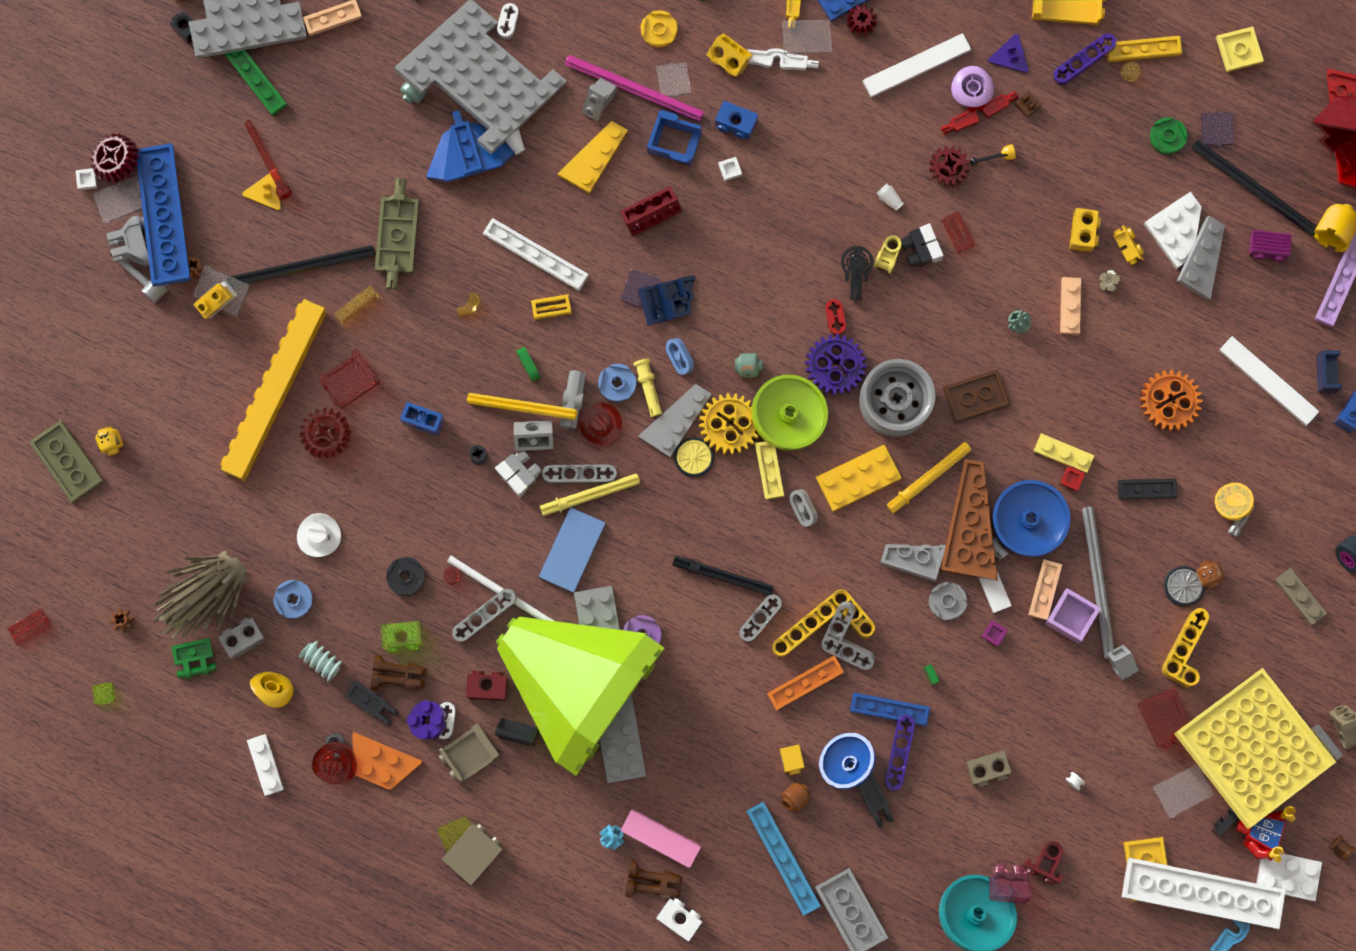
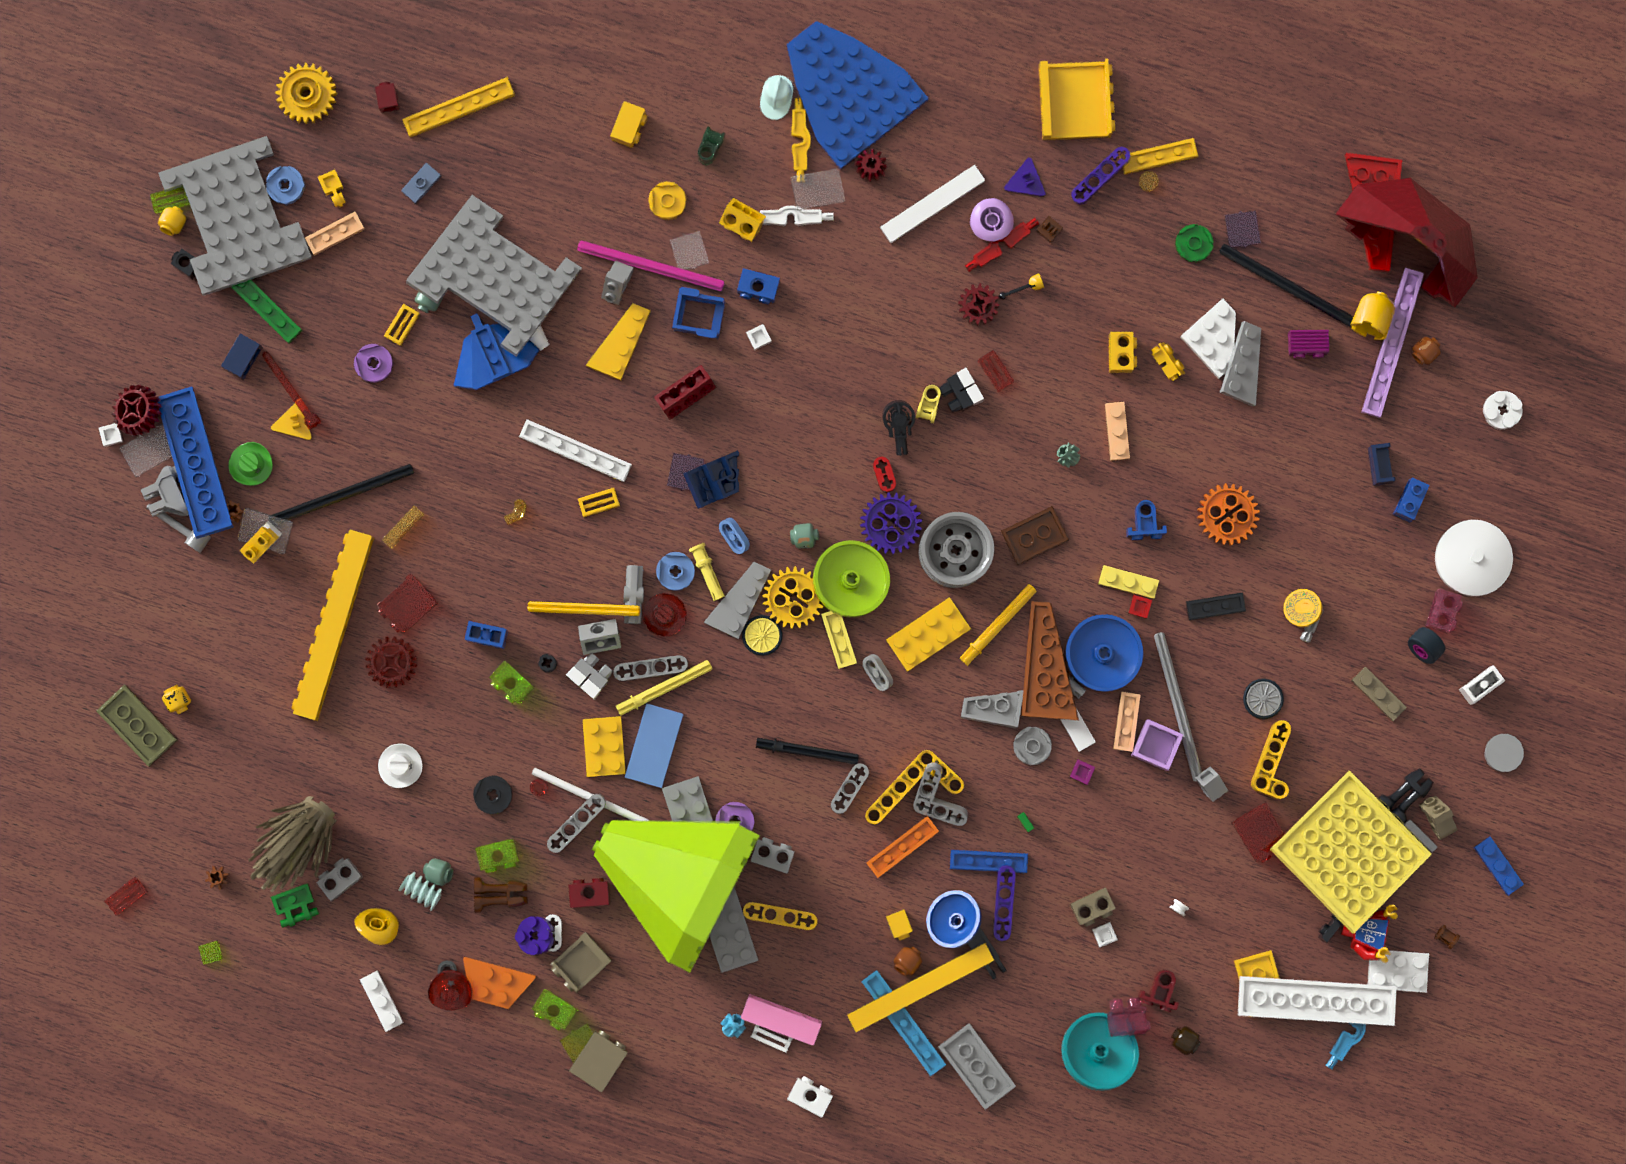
camera: 10 degrees left, 5 degrees up
(217, 225) = (250, 464): none -> bright green hat
(224, 121) = (241, 356): none -> dark blue panel
(291, 610) = (373, 832): medium blue plate -> none
(340, 644) = (438, 872): none -> sand green head
(348, 155) = (382, 369): none -> medium lavender plate
(369, 701) = (475, 924): black hinge -> none
(380, 128) = (410, 311): none -> yellow tile
(397, 234) = (433, 450): olive plate -> none
(430, 786) = (566, 1010): none -> clear neon green brick
(436, 458) = (522, 686): none -> clear neon green brick
(511, 22) = (517, 213): white beam -> none
(517, 732) = (625, 935): black tile -> none
(522, 544) = (604, 746): none -> yellow plate
(528, 364) = (583, 564): green beam -> none
(662, 878) = (792, 1072): reddish brown piece -> none
(664, 862) = (787, 1042): none -> white tile
(671, 679) = (771, 860): none -> light grey brick
(674, 732) = (779, 919): none -> yellow beam
(805, 824) = (920, 987): none -> yellow tile
(890, 197) = (923, 344): white cone -> none
(996, 798) = (1104, 934): none -> white tile
(1065, 915) = (1185, 1040): none -> dark brown head
(1088, 399) = (1146, 524): none -> blue pin
(1109, 280) = (1153, 400): dark tan plant -> none
(1183, 791) = (1285, 902): clear piece -> none
(1210, 574) = (1287, 684): dark orange head -> none
(1239, 49) = (1255, 144): light yellow plate -> none
(1268, 381) = (1323, 481): white tile -> none
(1328, 698) = (1410, 783): none -> black piece

